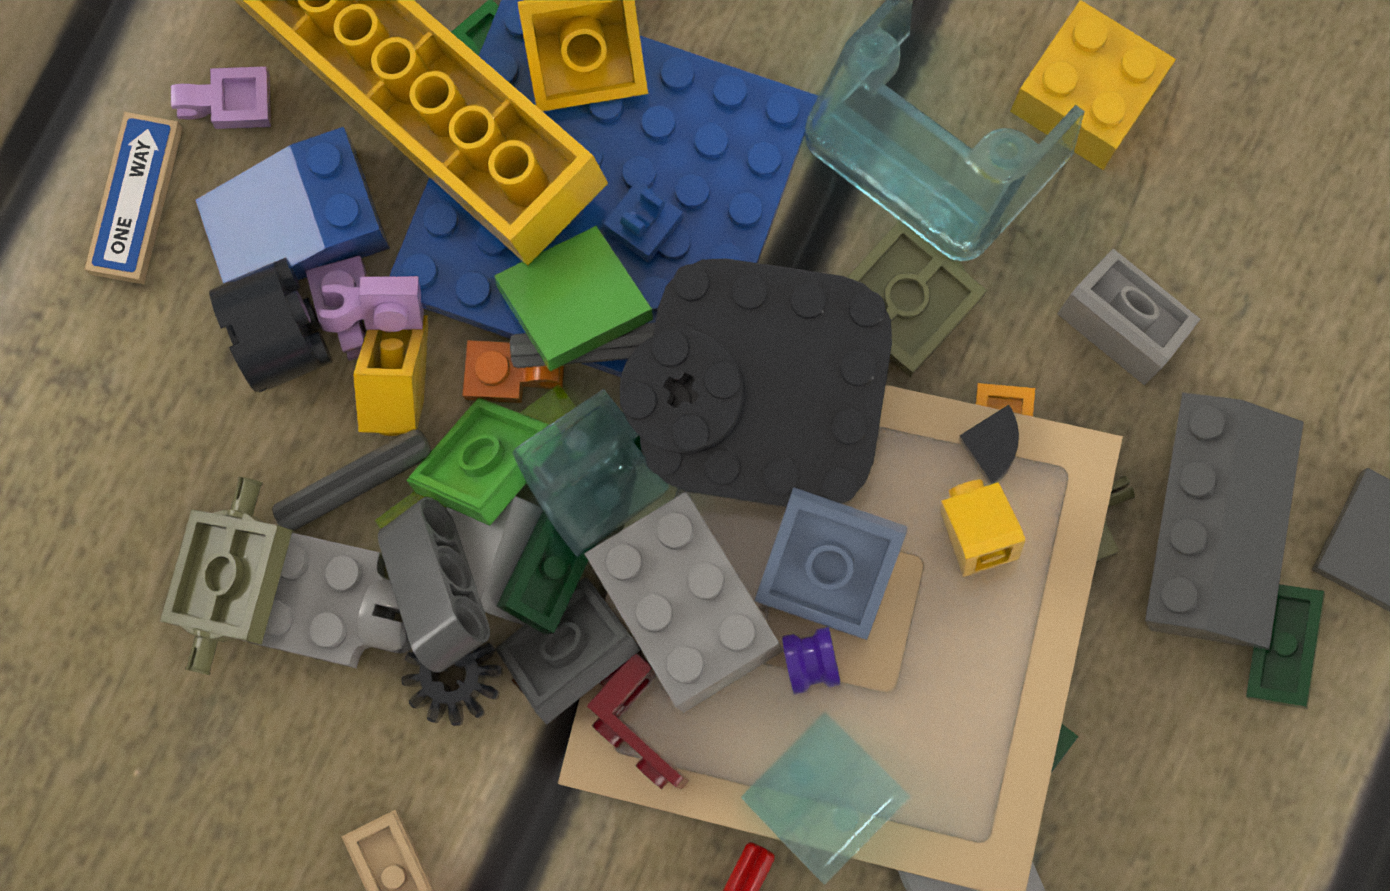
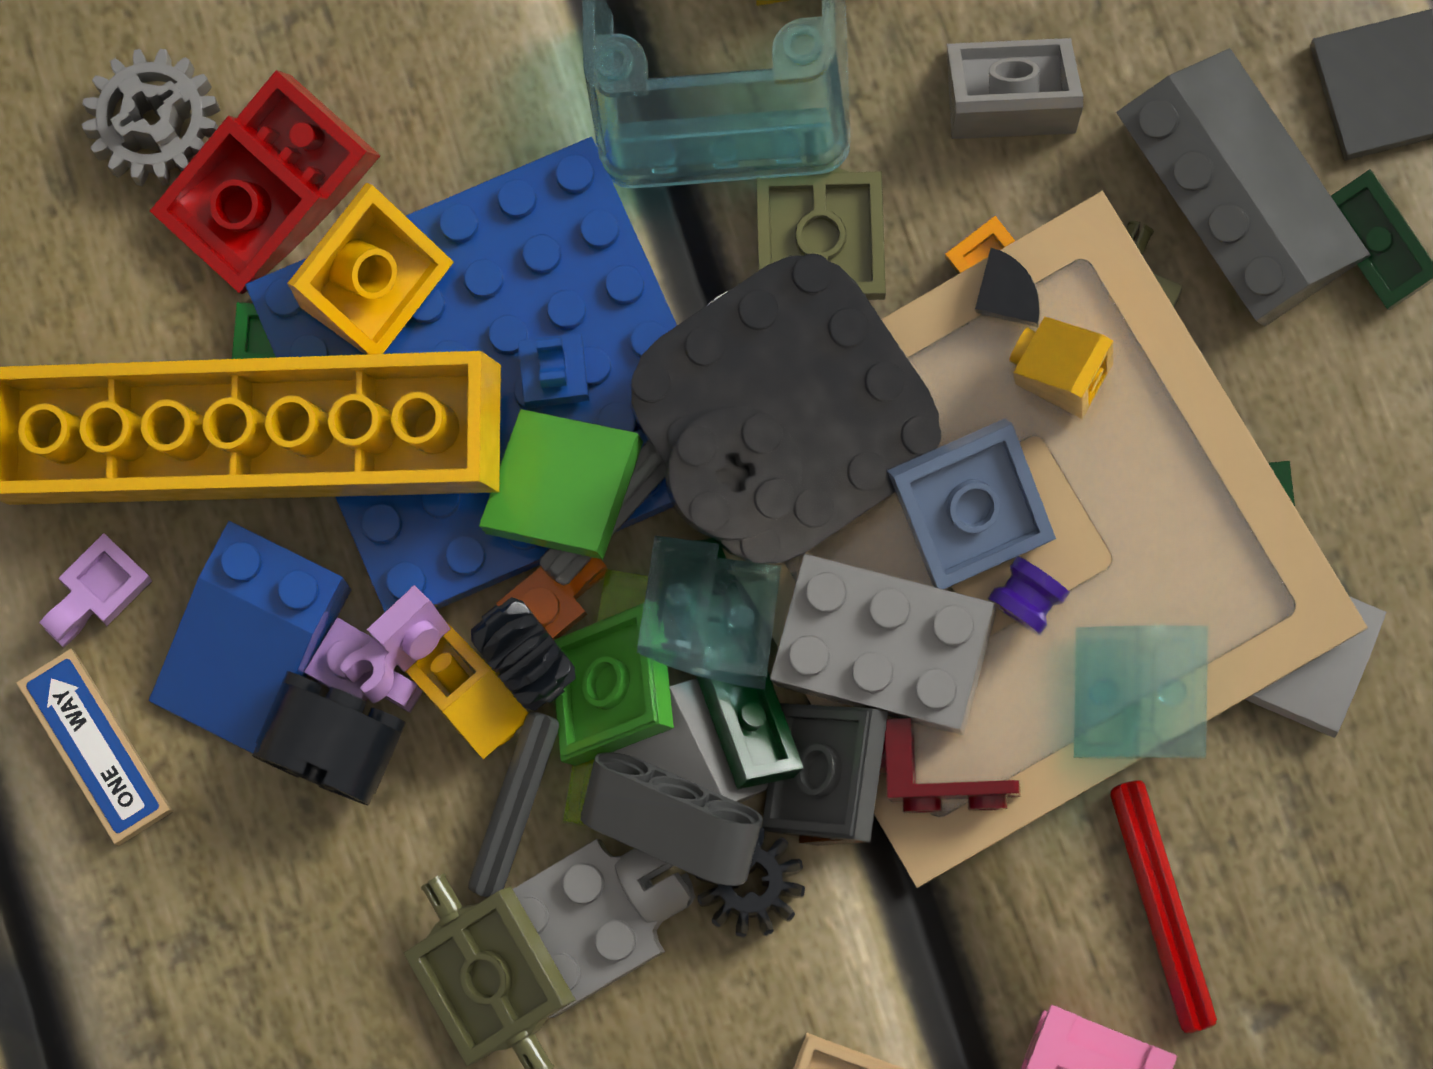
camera: 40 degrees left, 0 degrees up
(443, 386) = (523, 654): none -> black gear

